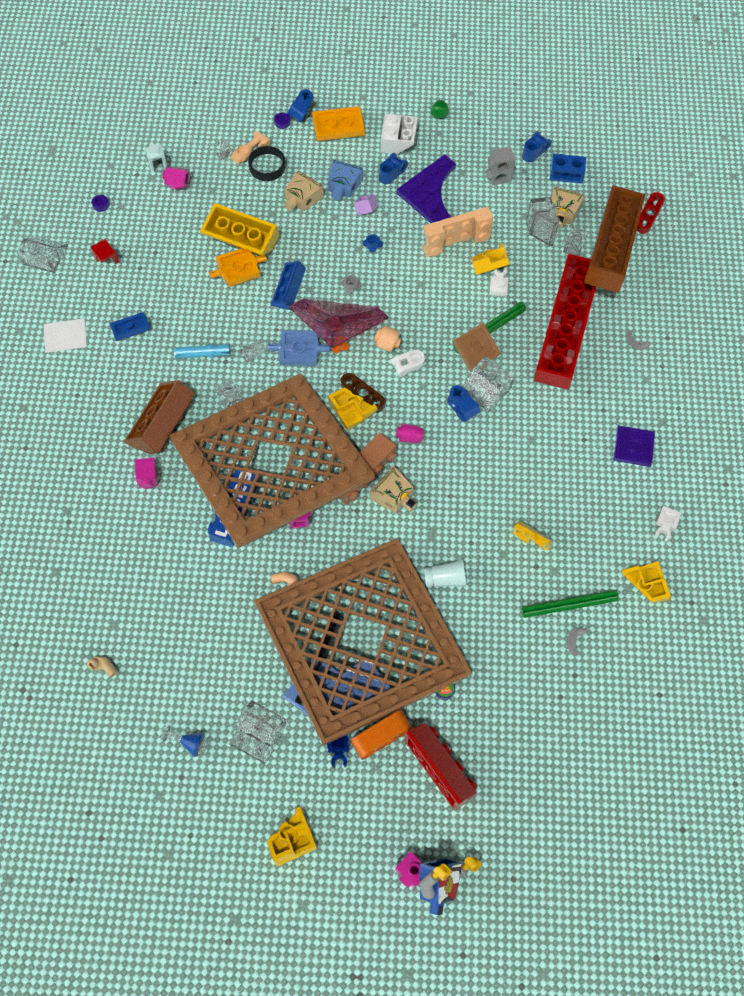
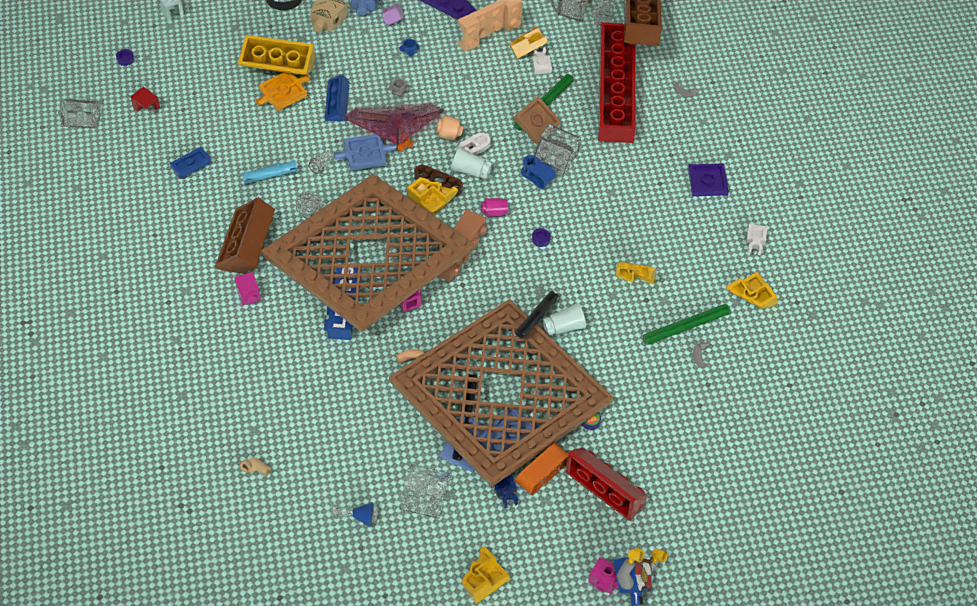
camera: 15 degrees left, 10 degrees down
(64, 335) = (125, 183): white sticker -> none
(176, 177) = (197, 20): dark pink brick -> none
(393, 492) = (494, 260): tan torso -> none
(398, 382) = (471, 164): none -> light aqua plant
(420, 562) = (540, 310): none -> black axle
(448, 475) = (541, 237): none -> dark purple tile

